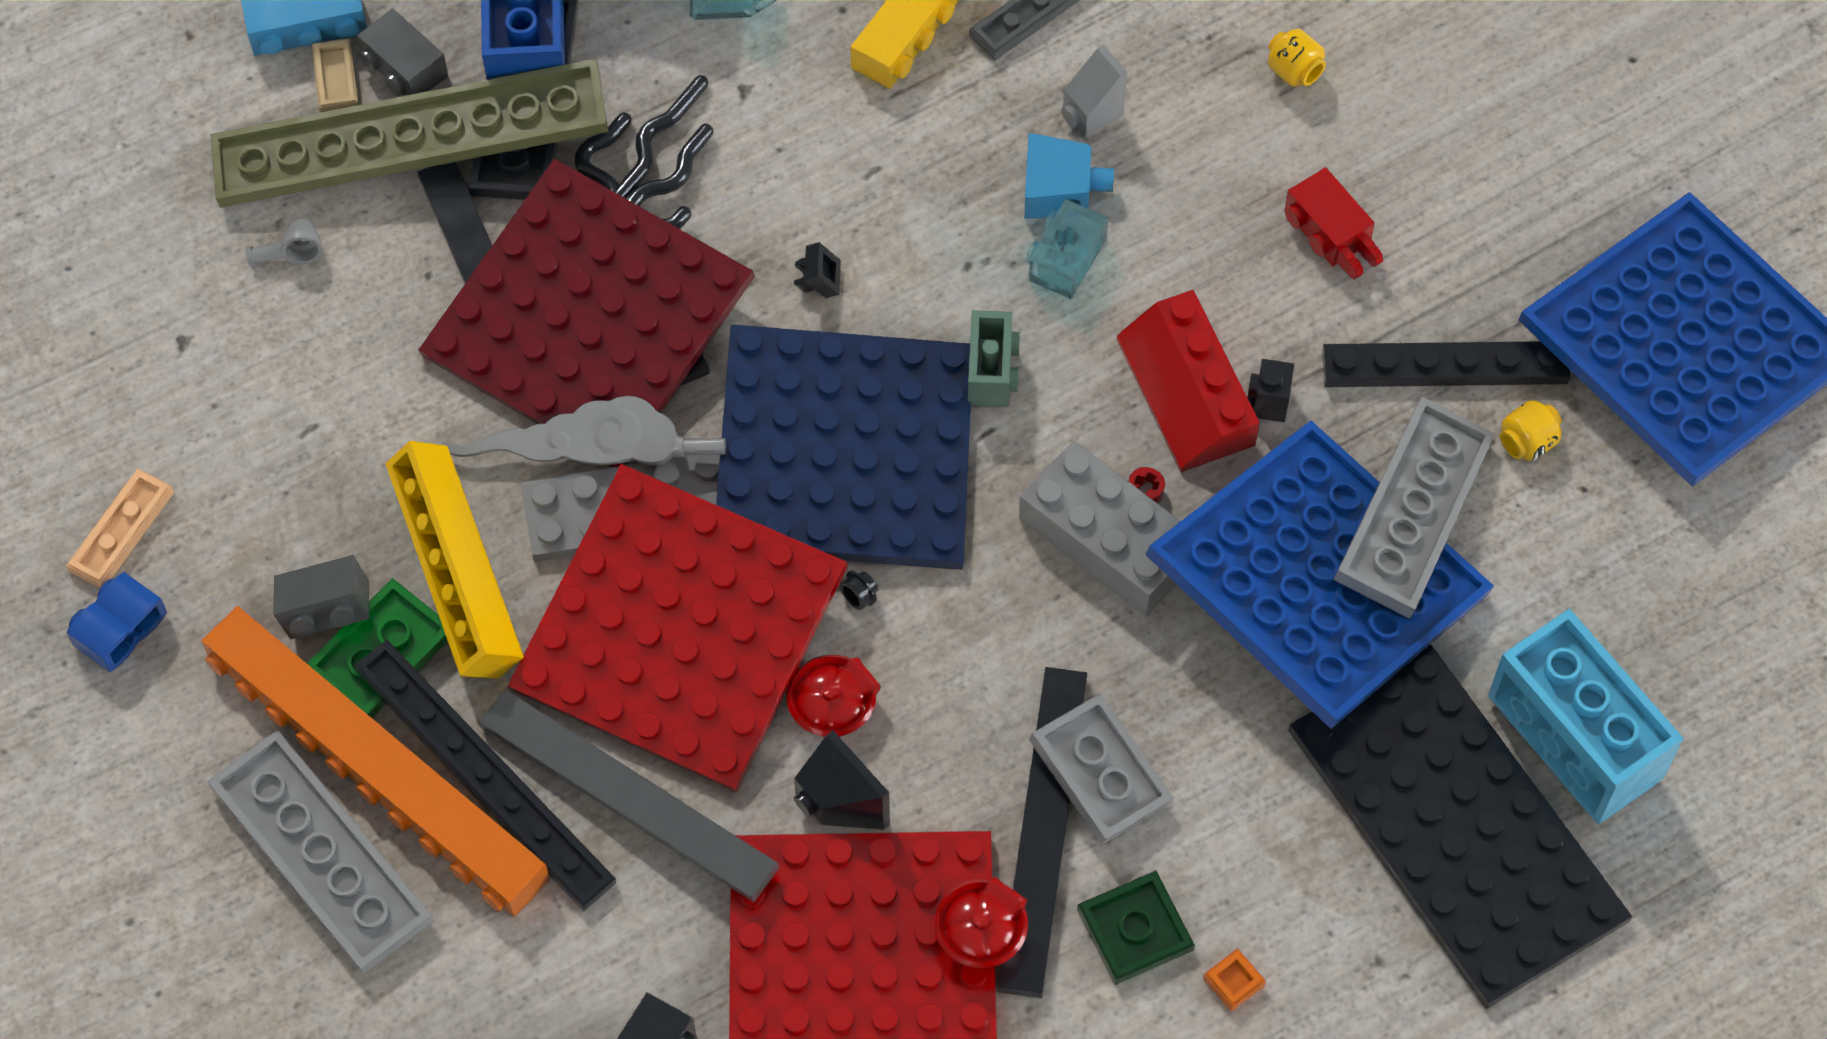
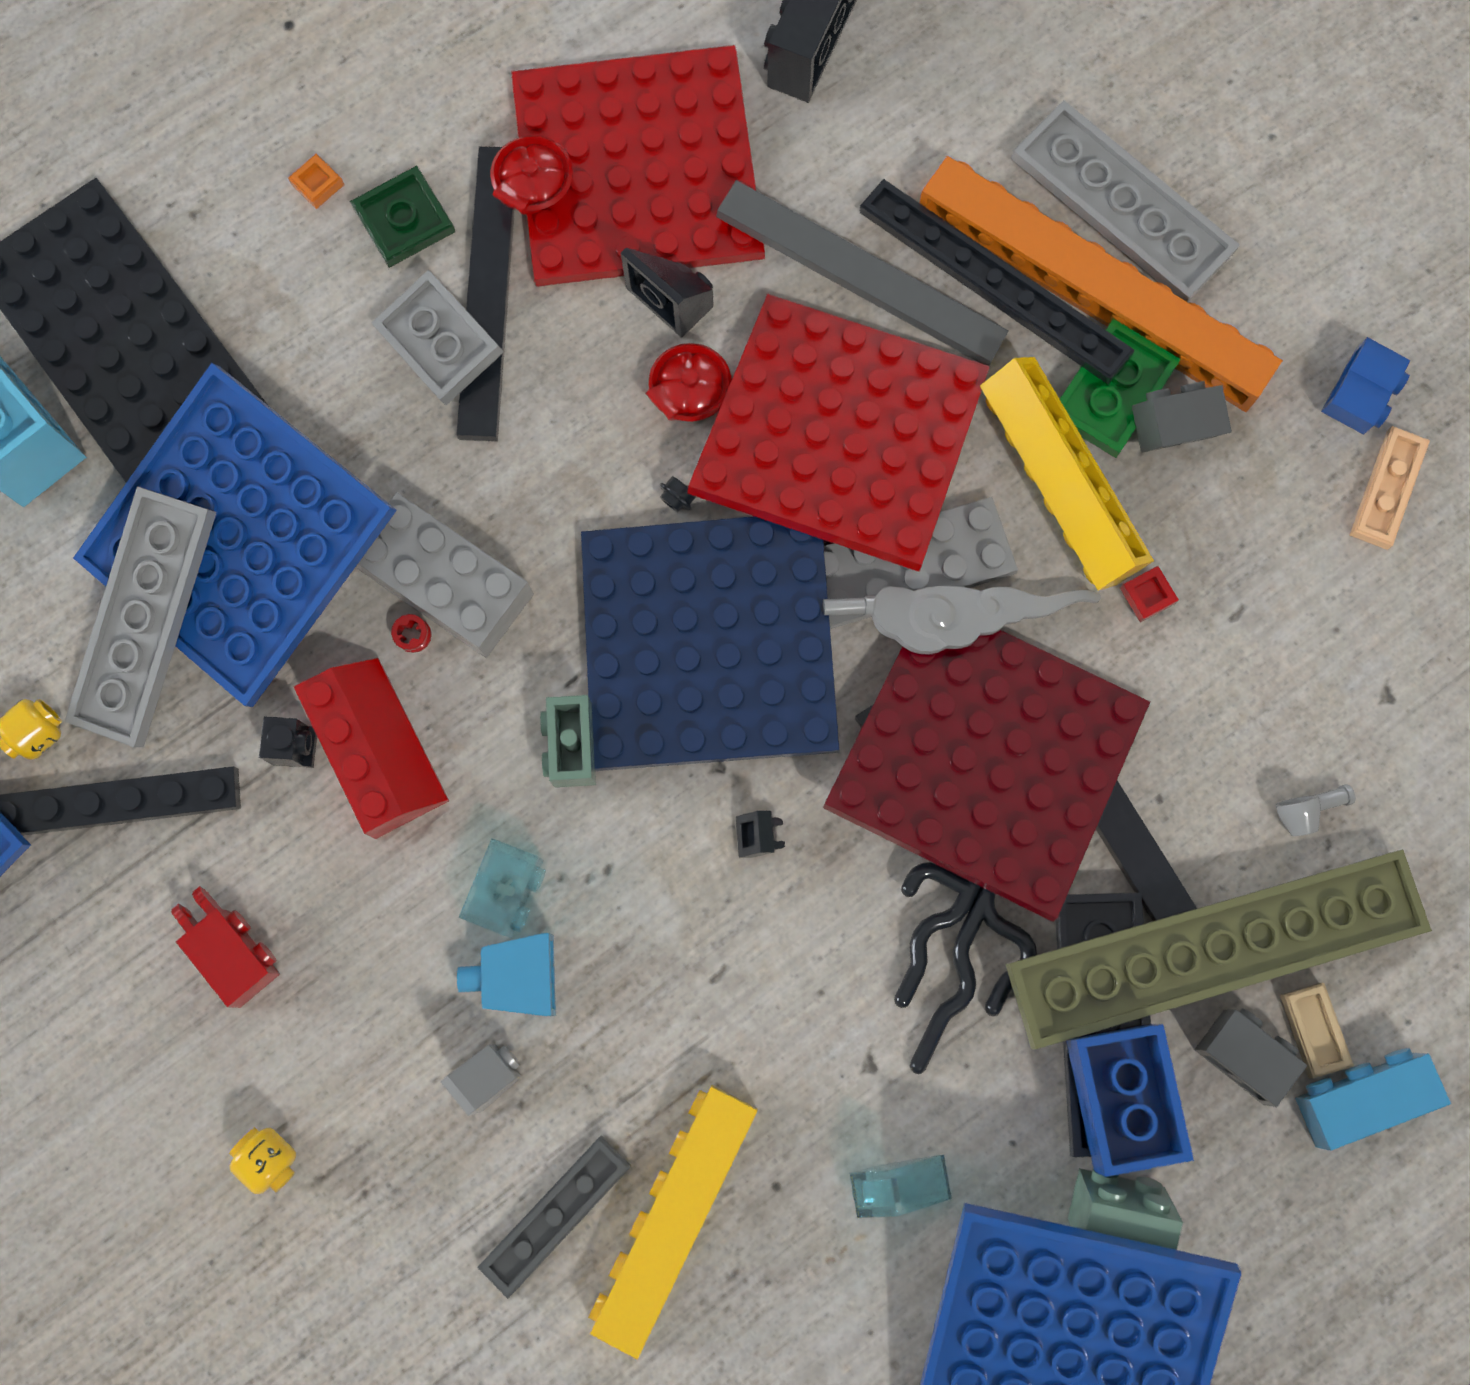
camera: 175 degrees right, 15 degrees up
(389, 440) = (1149, 594): none -> red plate

